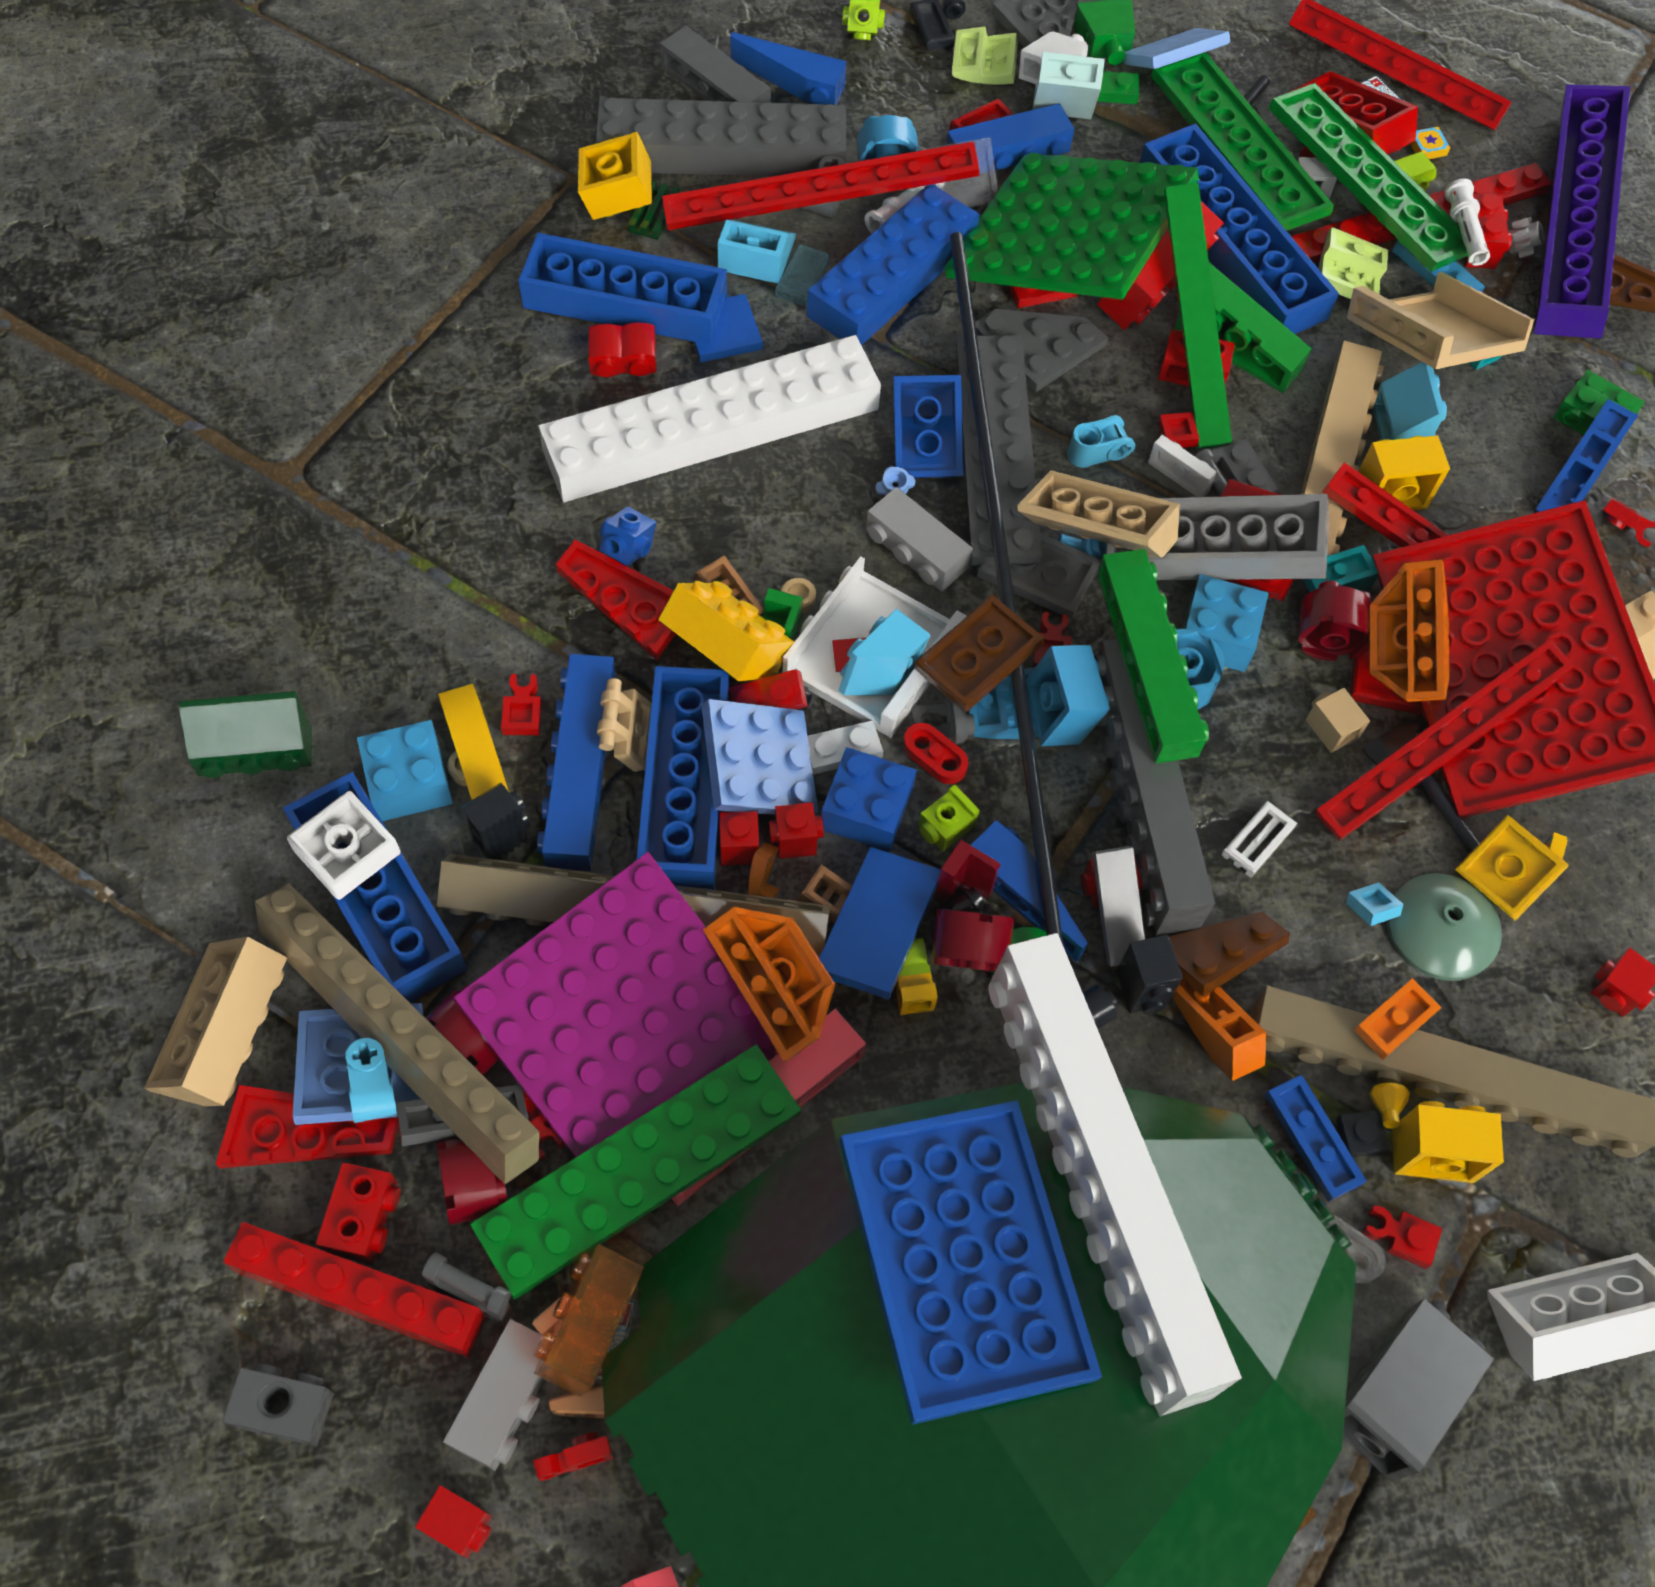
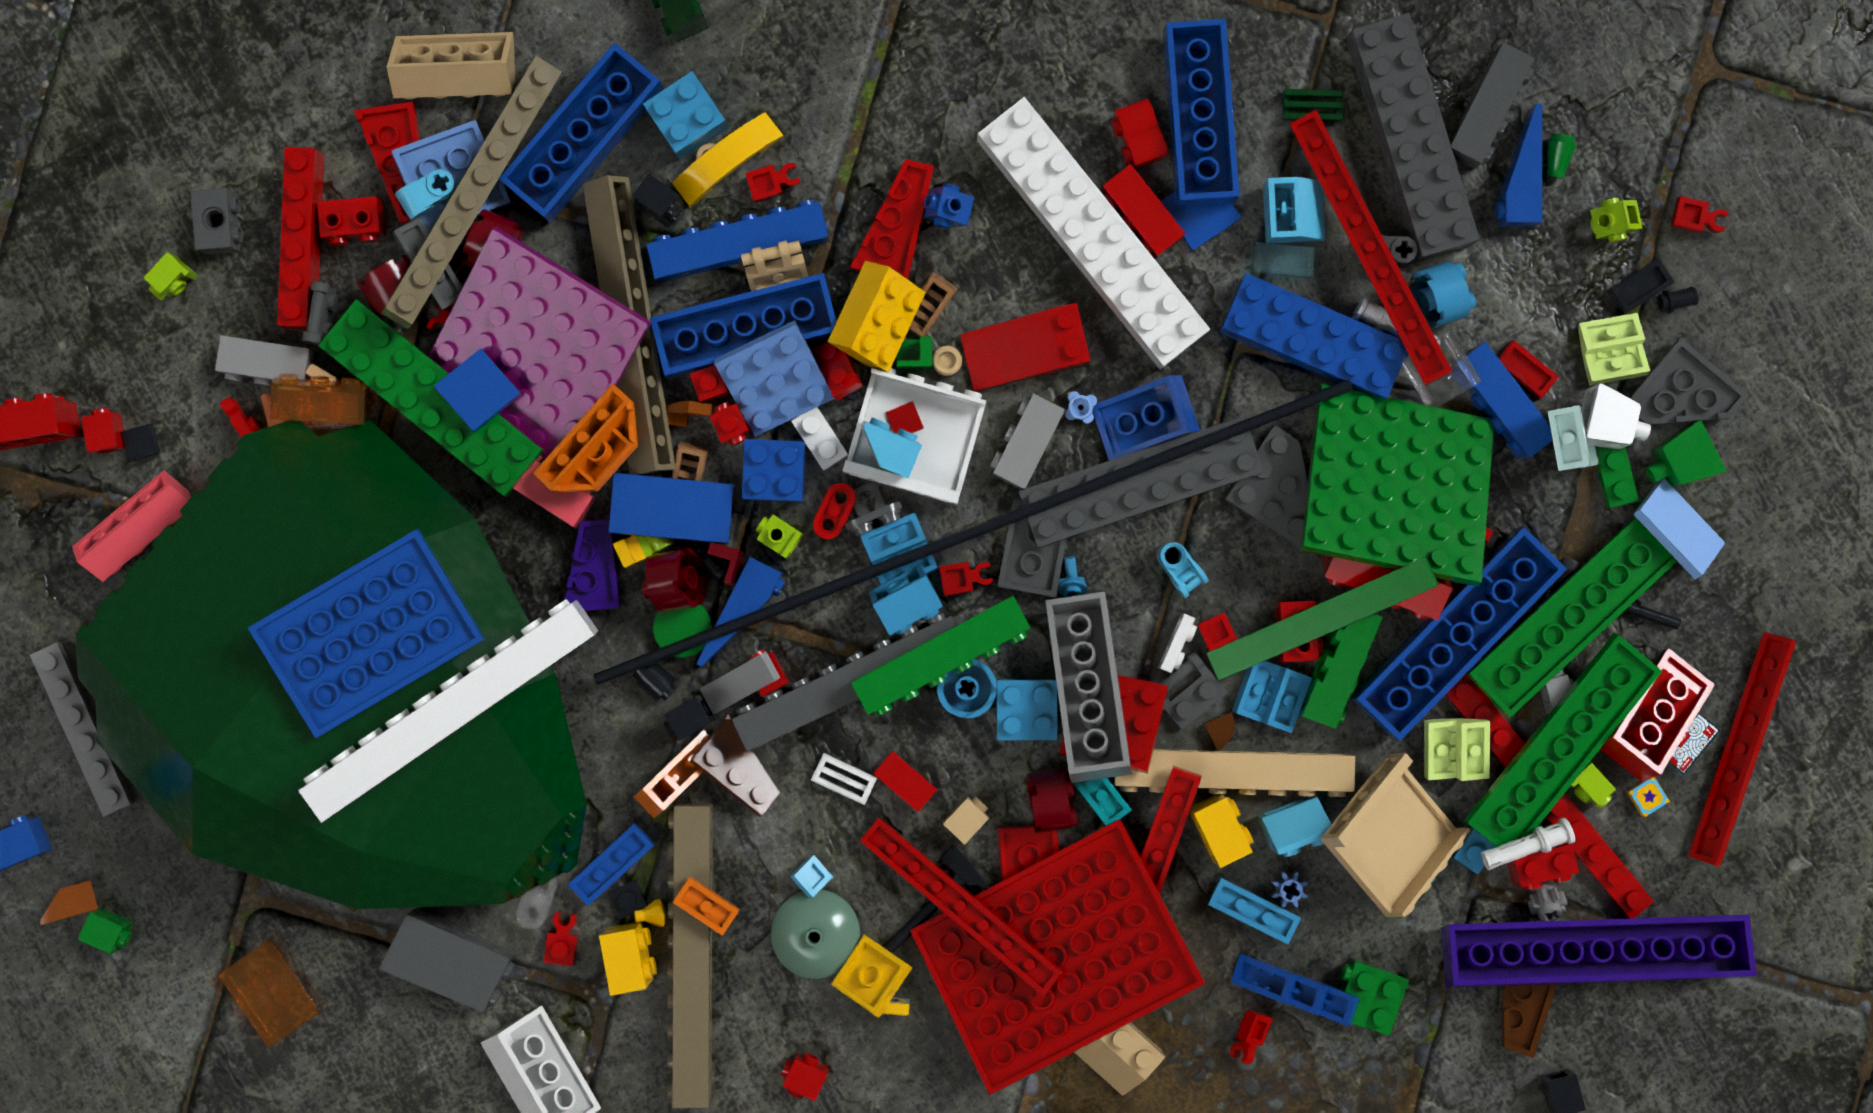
camera: 75 degrees right, 25 degrees up
(328, 1501) = (169, 276): none -> lime brick
(350, 823) = (585, 83): white brick -> none
(455, 1522) = (181, 361): red brick -> none
(614, 176) = (1324, 59): yellow brick -> none
(653, 1095) = (477, 390): none -> blue tile
(703, 361) = (1142, 211): none -> red brick
(781, 35) = (1559, 154): none -> green cone
(812, 512) = (1025, 347): none -> red slope
(925, 1045) = (594, 568): none -> dark purple wing
(979, 653) = (917, 520): reddish brown tile -> none
(1103, 513) = (1065, 584): tan slope -> none
(1260, 405) = (1272, 695): none -> dark azure slope
(1276, 774) = (905, 781): none -> red tile
(1285, 458) = (1220, 729): none -> reddish brown tile
(1412, 633) = (1037, 864): orange wedge -> none
(1473, 441) = (1291, 897): none -> medium blue gear
(1490, 480) = (1253, 910): none -> dark azure plate

